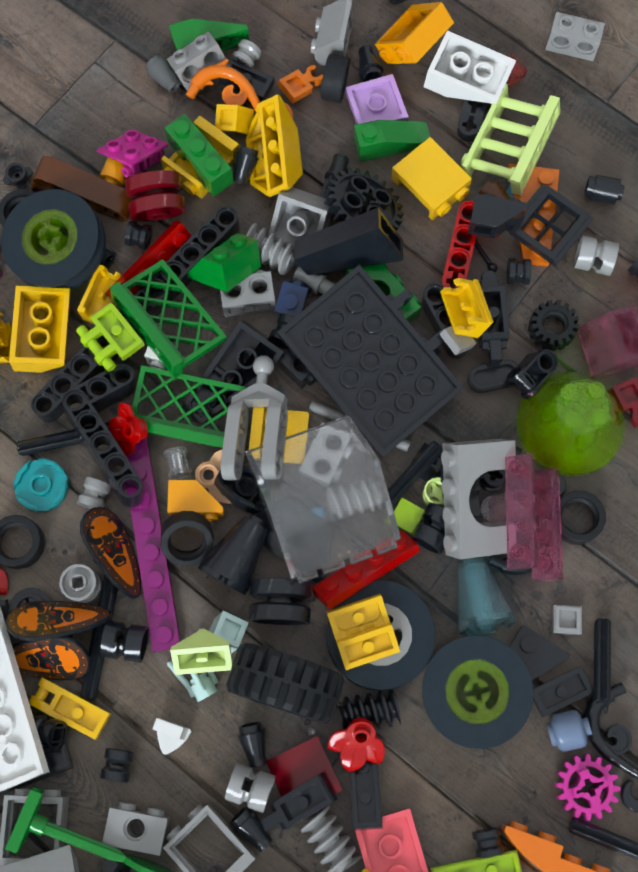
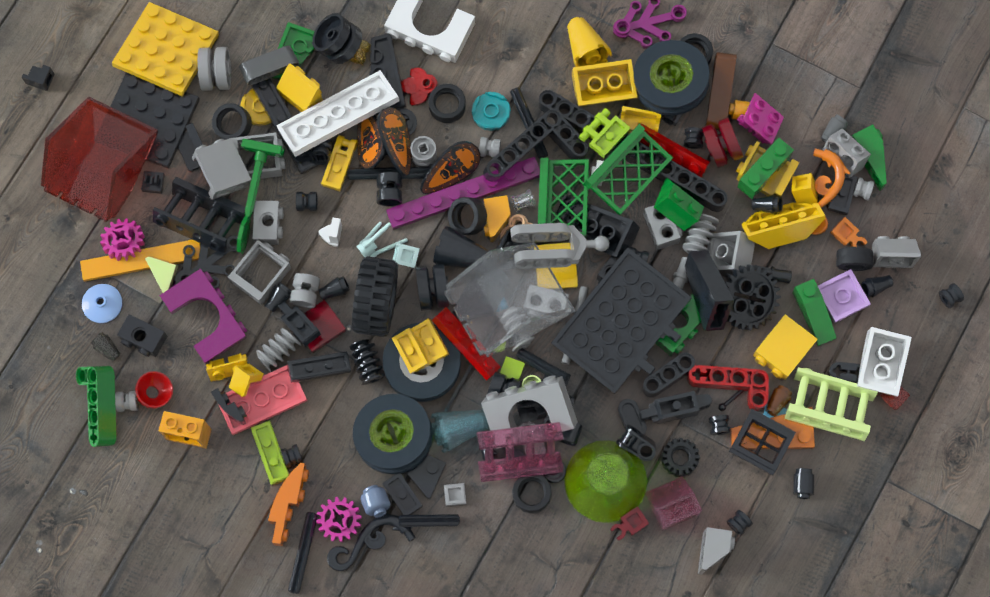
camera: 80 degrees right, 0 degrees up
(17, 169) = (730, 37): black plate -> none
(127, 428) = (538, 159): red plate -> none
(201, 654) = (386, 237): yellowish green slope -> none
(292, 298) = (663, 258): dark blue bracket -> none
(356, 748) = (340, 355): red plate -> none
(414, 33) = (905, 312): light orange window -> none
(457, 343) = (649, 381): light grey tile -> none
(467, 308) = (675, 383): yellow hinge -> none
(495, 215) = (754, 394): black slope -> none
(575, 36) = (937, 444): light grey brick -> none
(596, 255) = (743, 484): light grey wheel -> none

